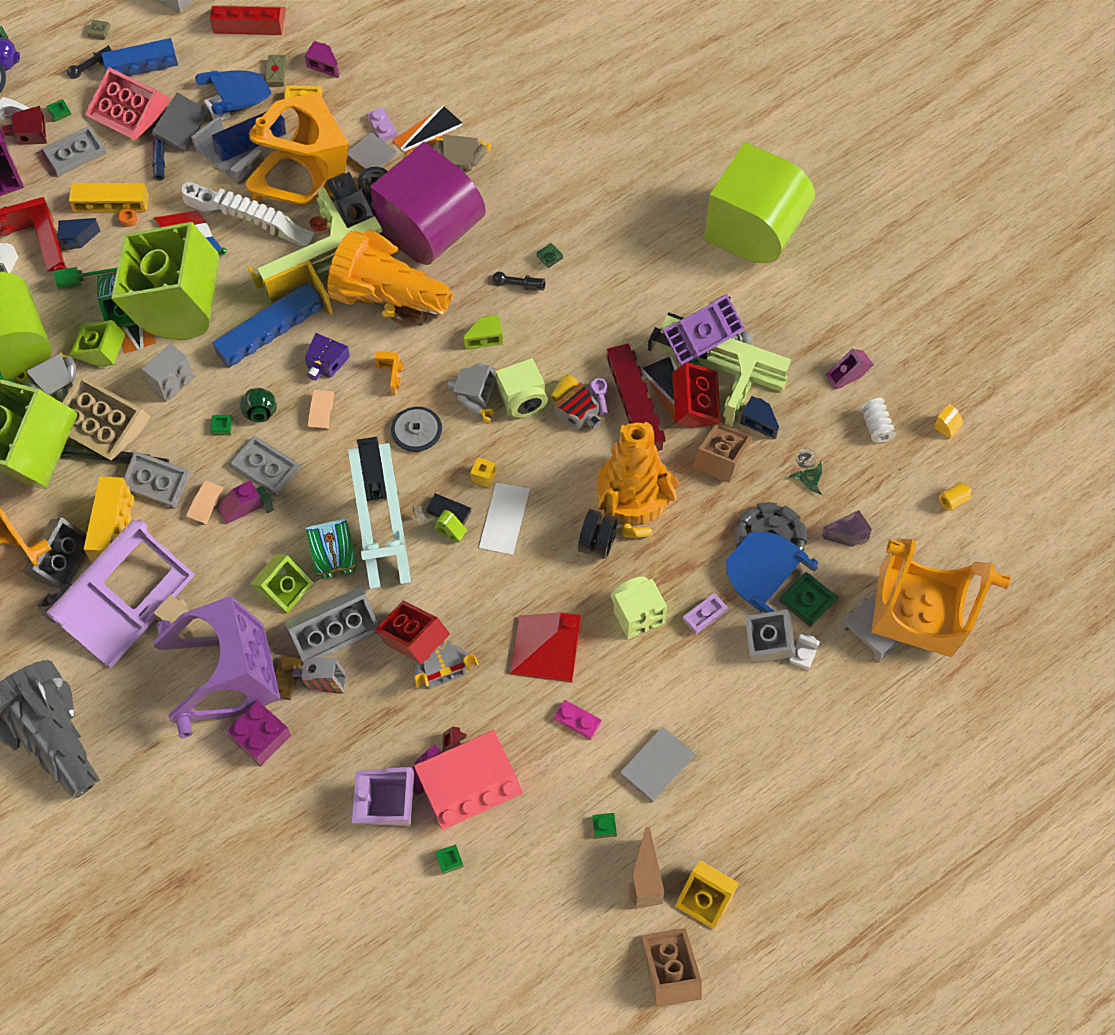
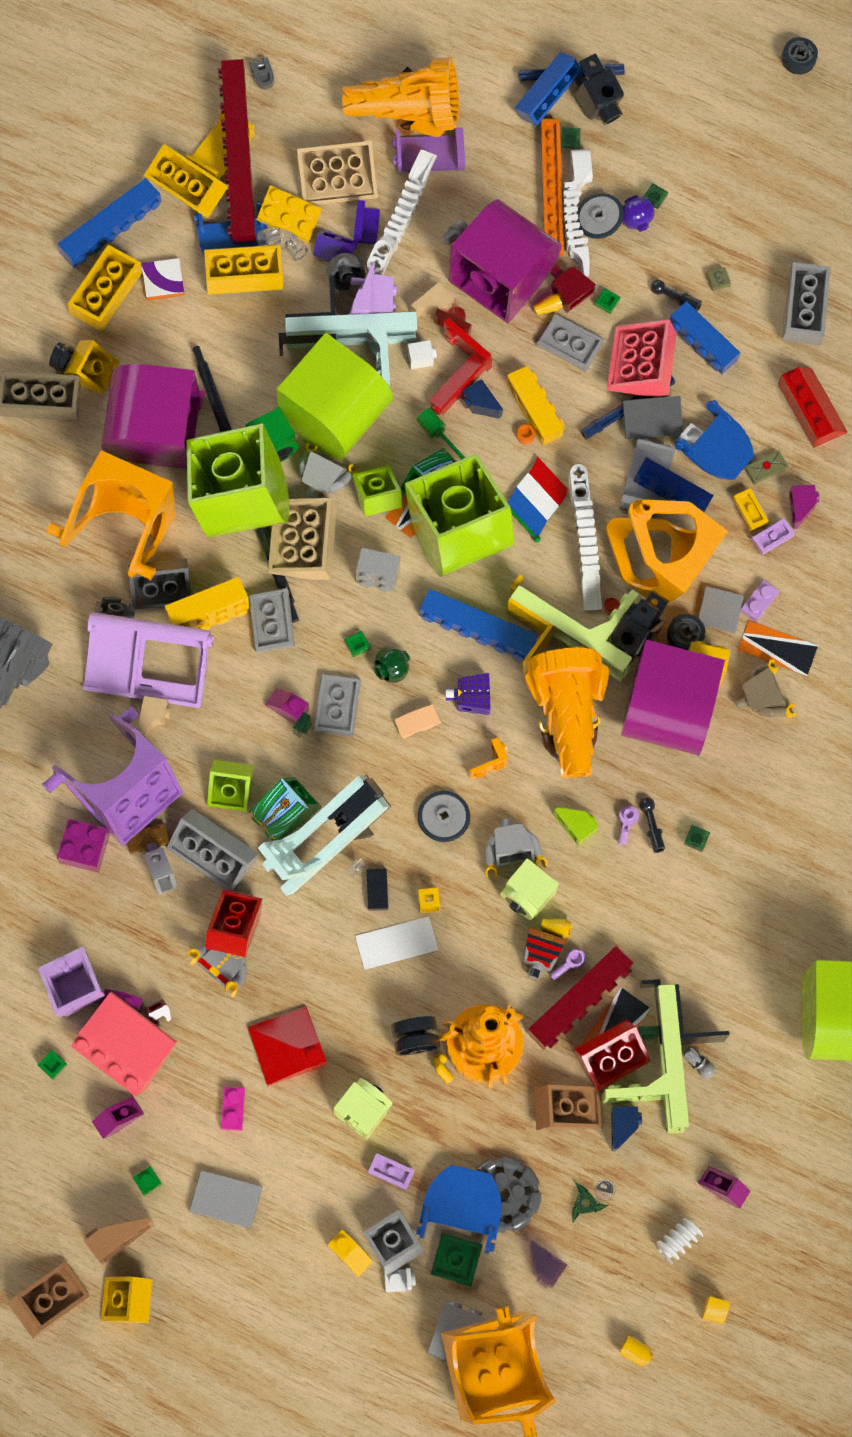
camera: 55 degrees right, 10 degrees up
(30, 149) = (549, 304): none -> yellow cone
(204, 502) = (276, 675): light nougat slope -> none
(336, 91) = (773, 536): none -> lavender plate
(450, 526) = (358, 901): lime piece -> none
(501, 295) = (628, 816): none -> lavender plate
(532, 823) = (117, 1117): none -> magenta slope
(703, 329) = (671, 1027): medium lavender plate -> none
(758, 681) = (349, 1253): none -> yellow slope

